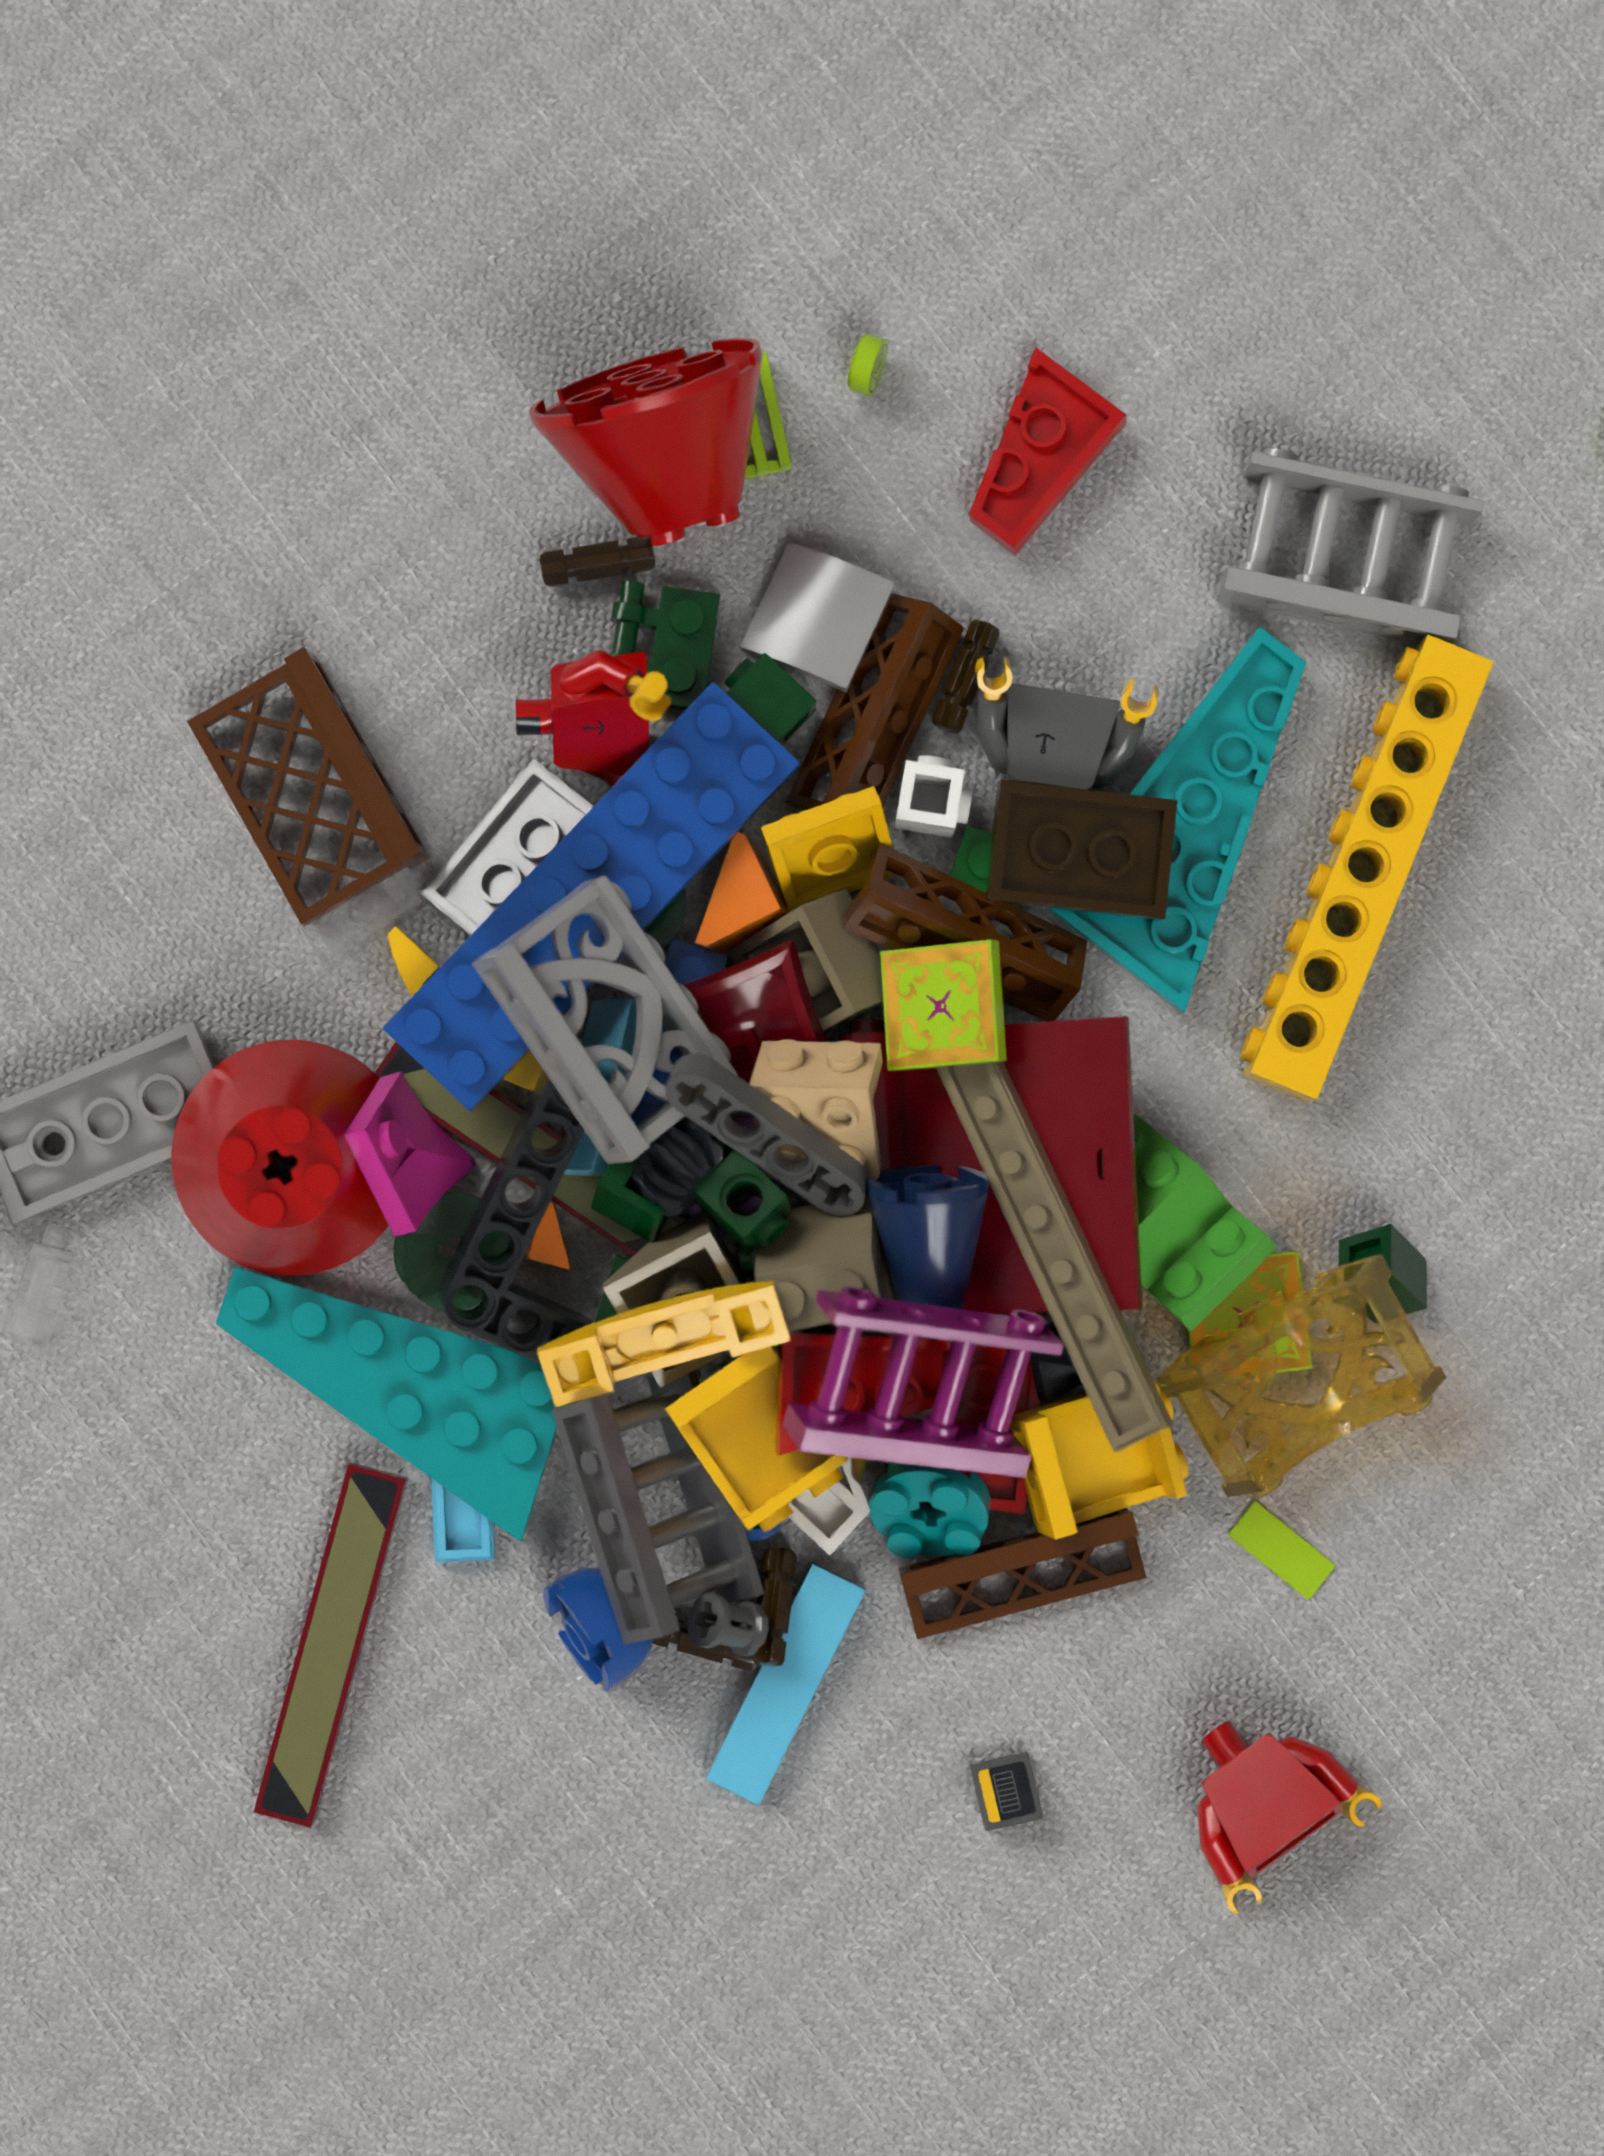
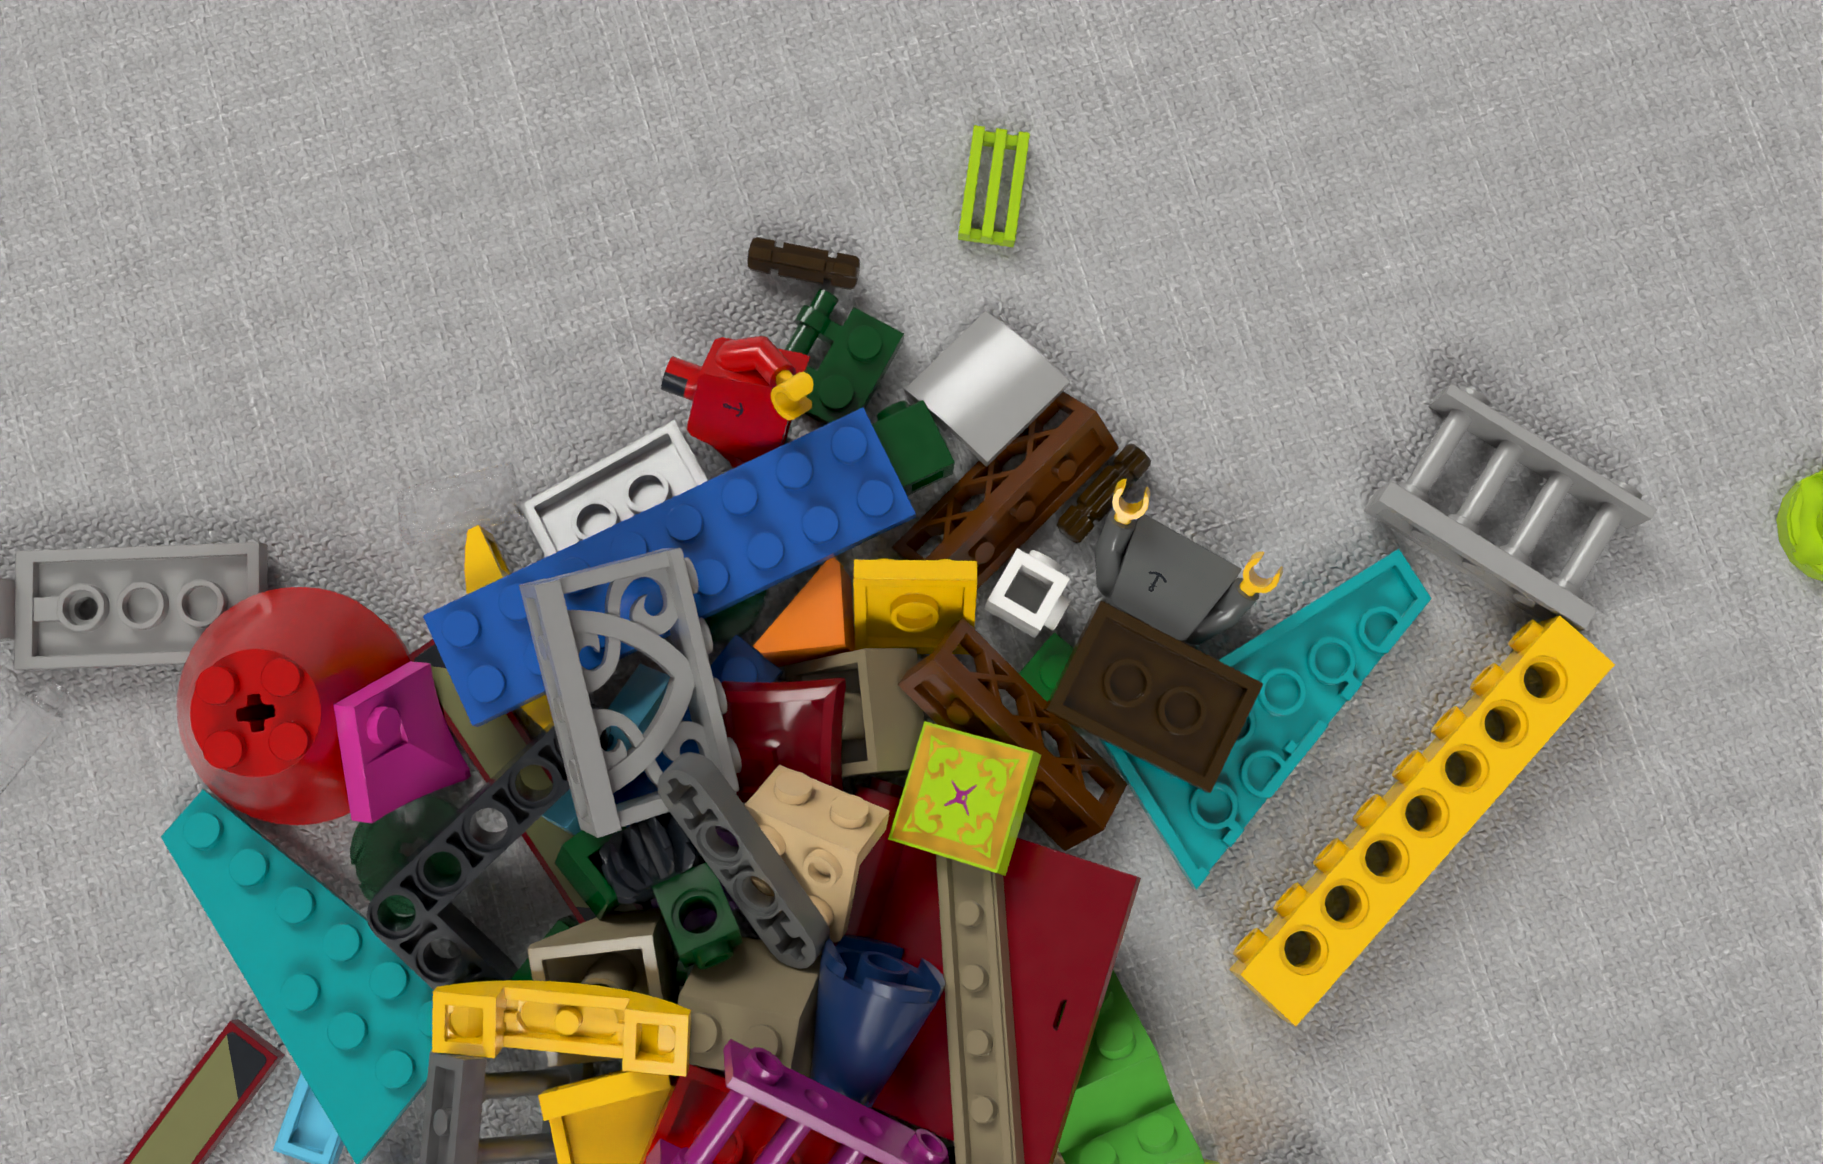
camera: 20 degrees right, 5 degrees down
(351, 760) = (506, 362): reddish brown fence -> none
(549, 1242) = (505, 878): orange slope -> none
(661, 436) = (902, 170): red cone -> none
(867, 364) = (1118, 177): lime tile -> none
(1047, 446) = (1256, 311): red wing -> none

